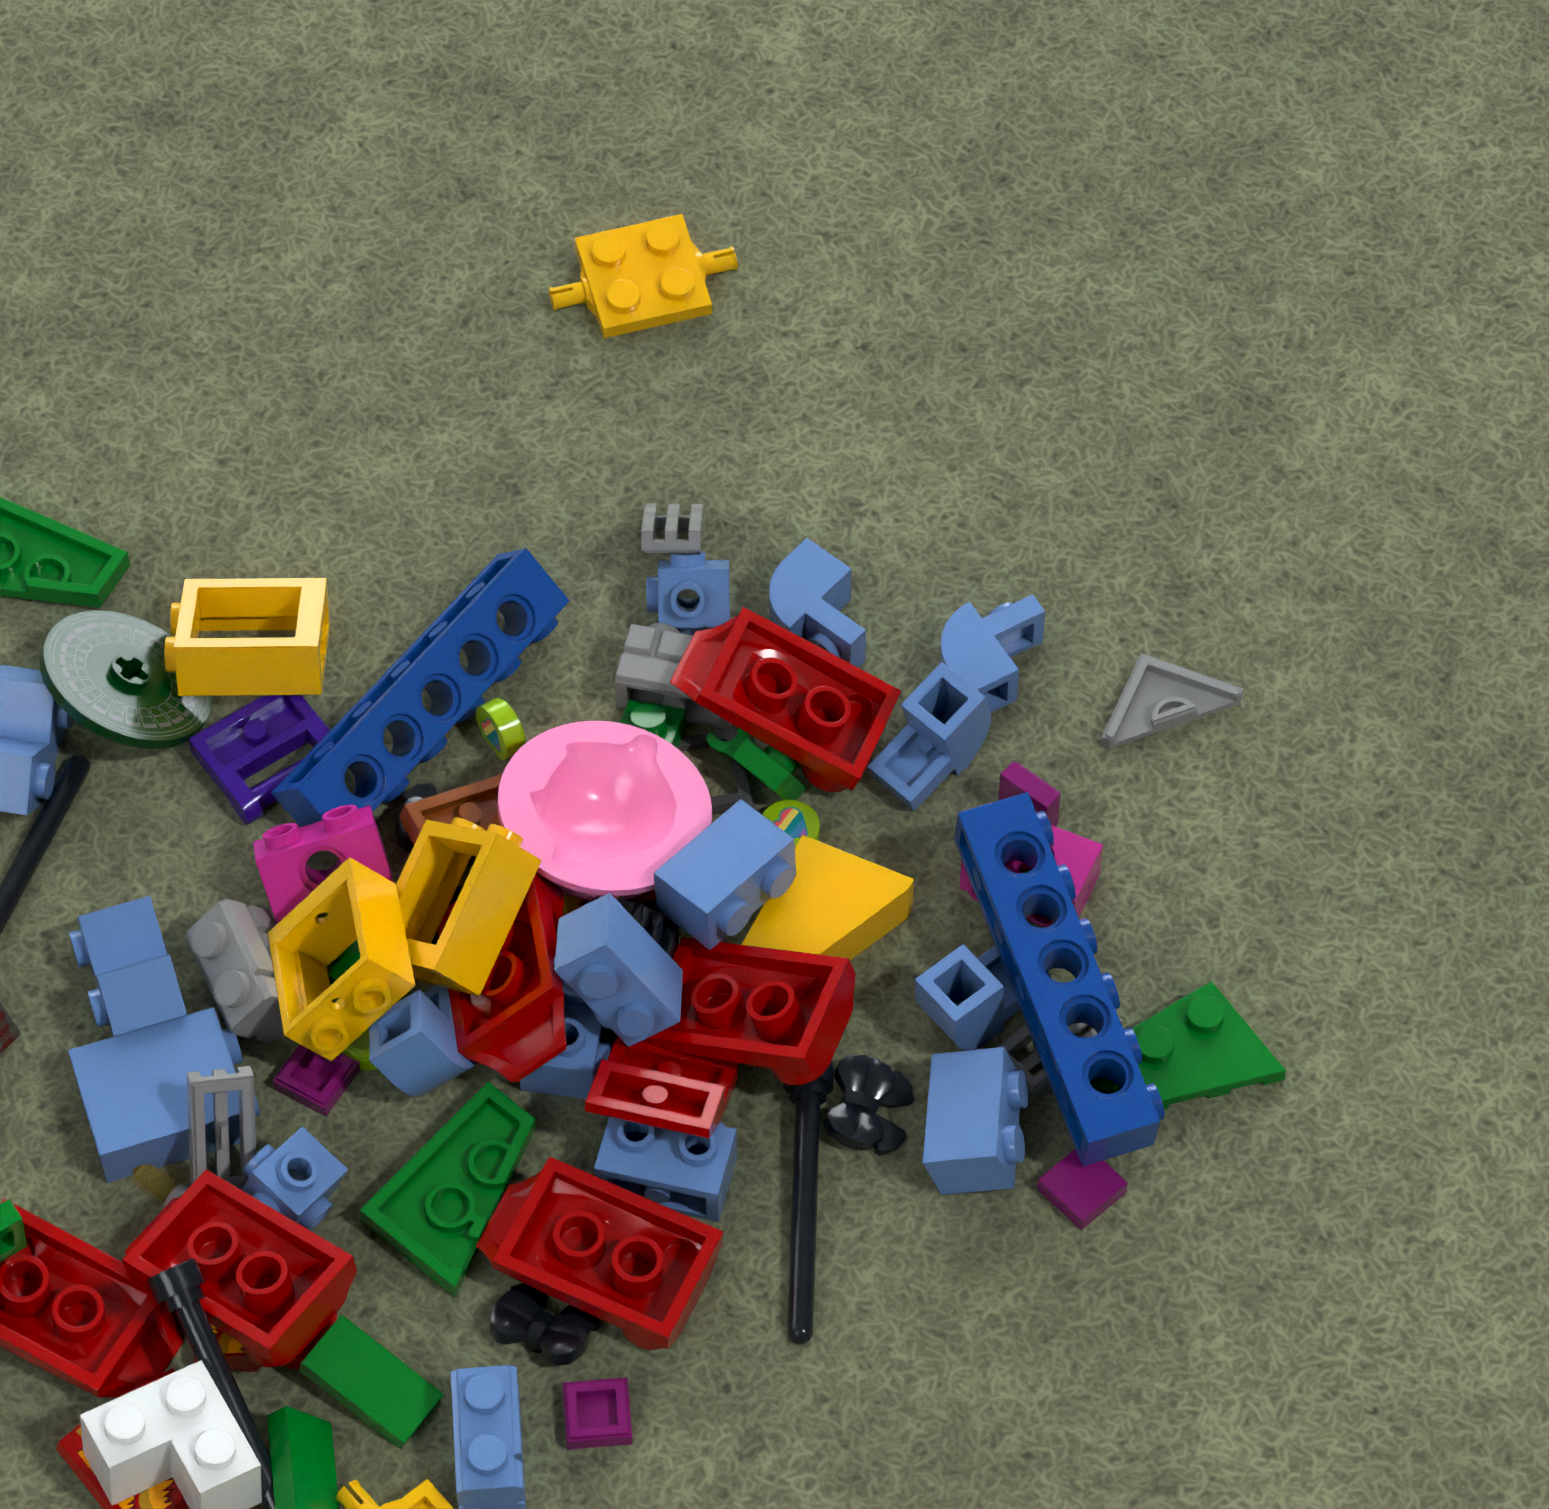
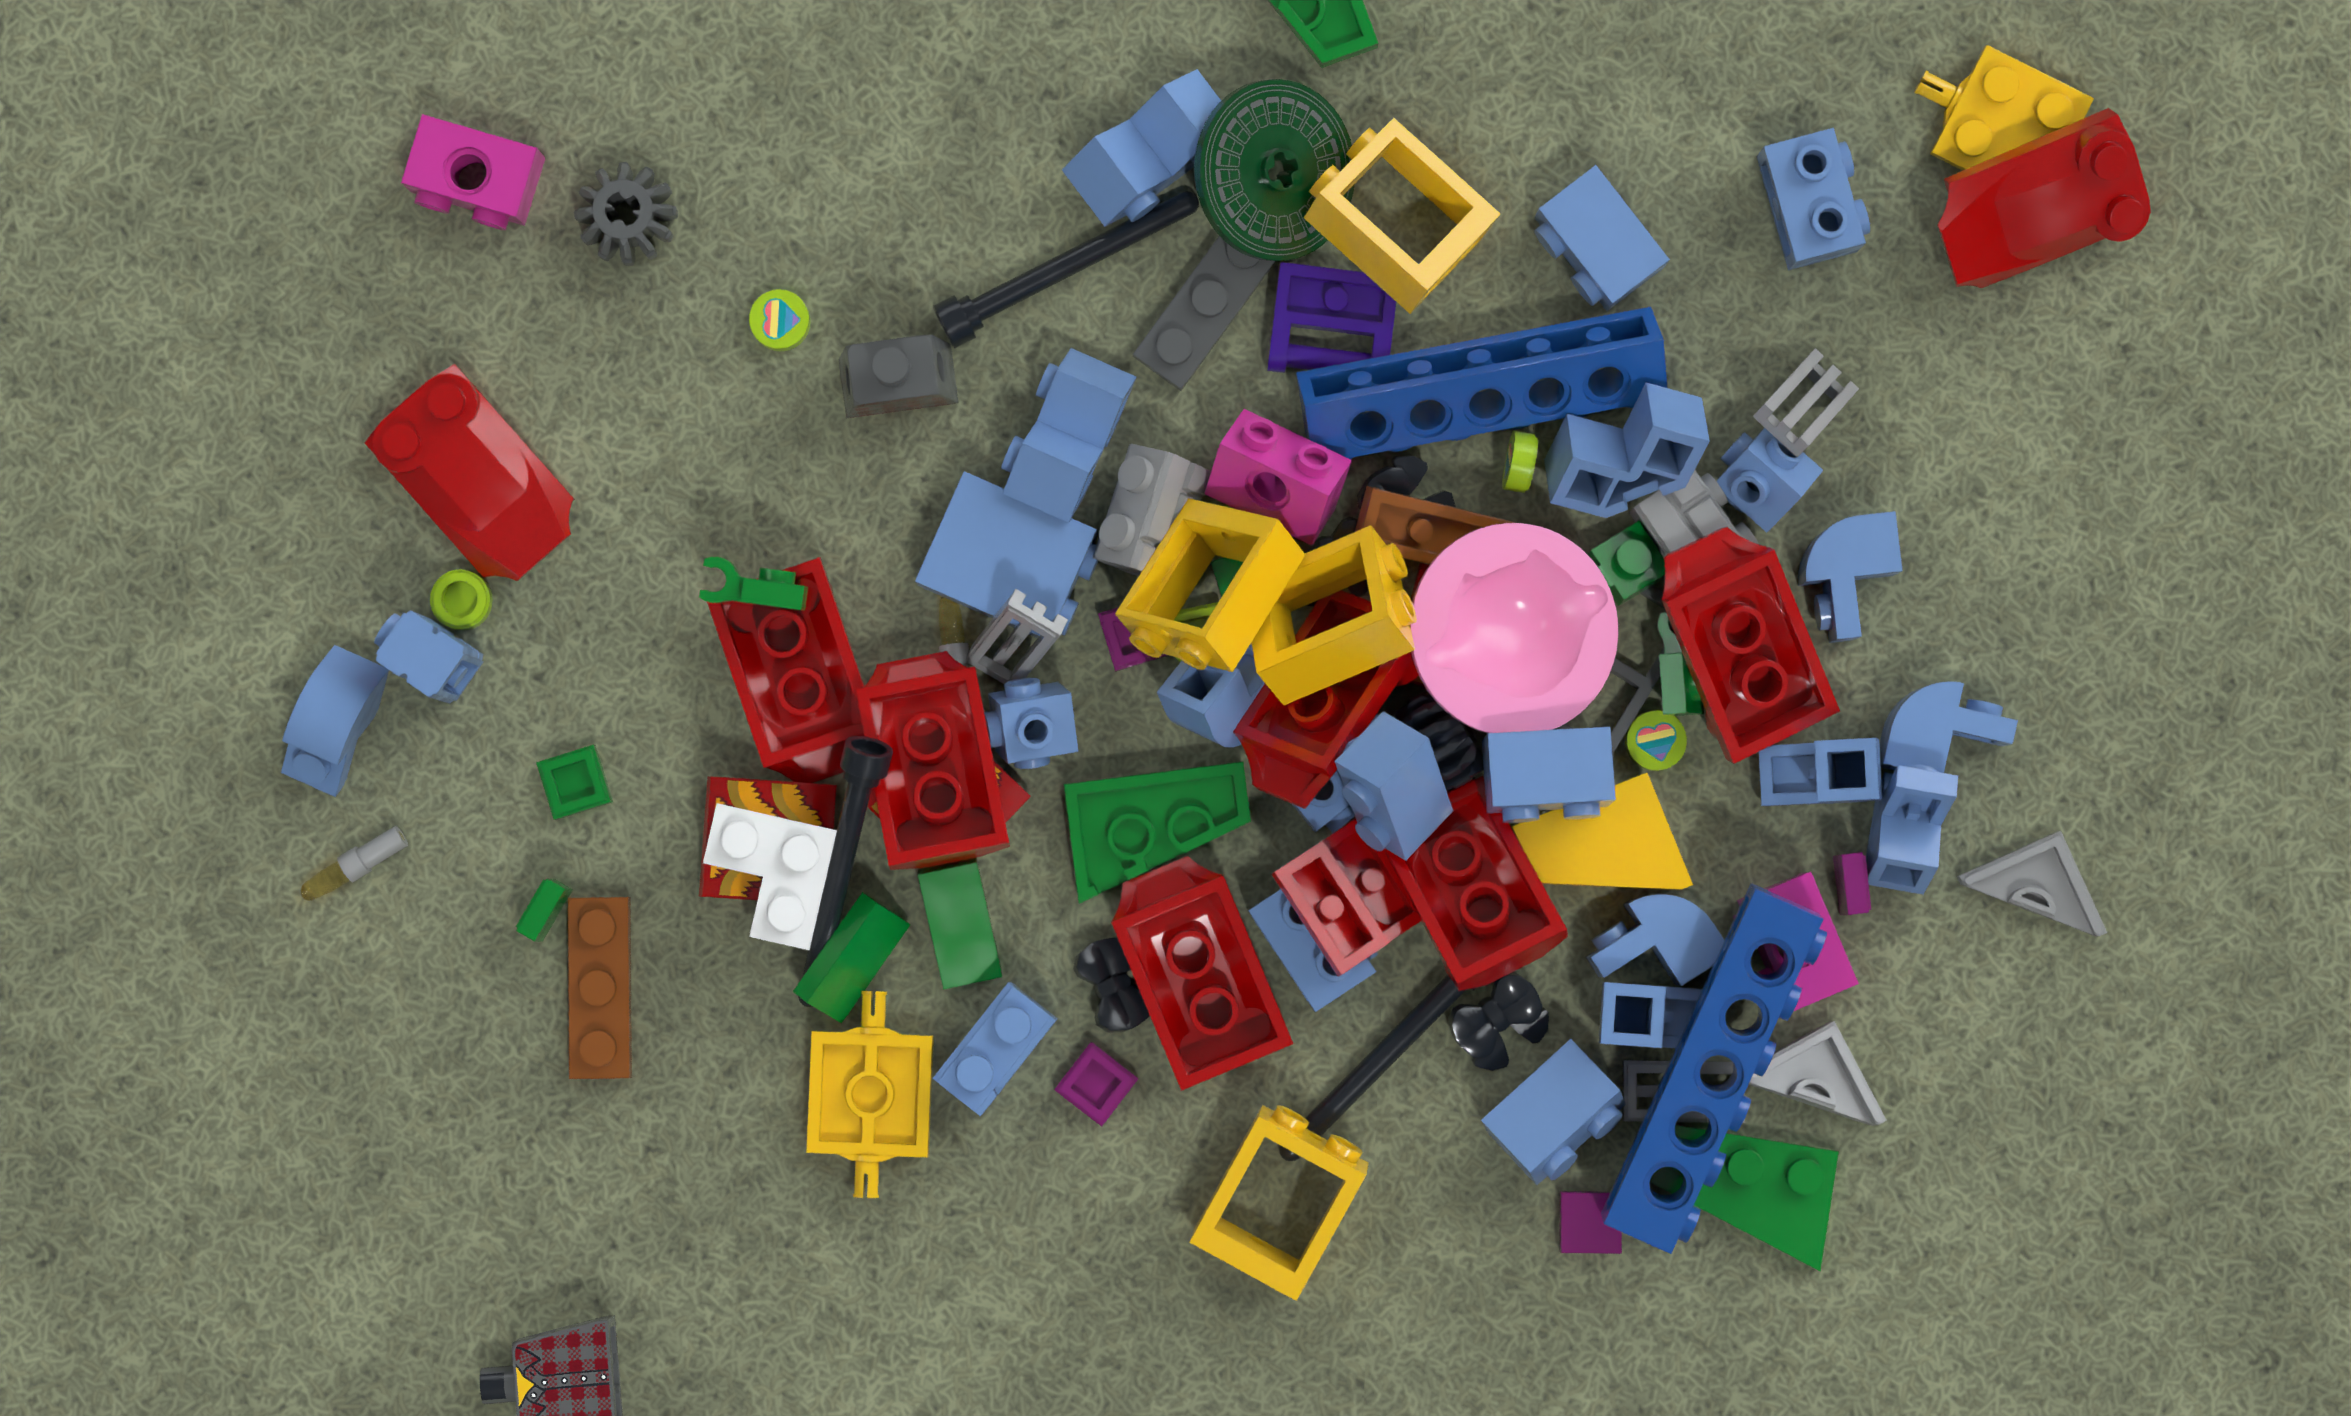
camera: 45 degrees right, 30 degrees up
(158, 821) = (1201, 313): none -> dark grey plate
(417, 548) = (1599, 240): none -> medium blue brick
(546, 413) = (1813, 198): none -> medium blue brick
(591, 629) = (1605, 466): none -> medium blue brick
(715, 287) = (2044, 201): none -> red slope
(838, 1421) = (1254, 1254): none -> yellow window
(921, 934) = (1670, 926): none -> medium blue brick
(1026, 723) = (1908, 827): none -> medium blue brick
(1146, 943) = (1822, 1074): none -> light grey tile

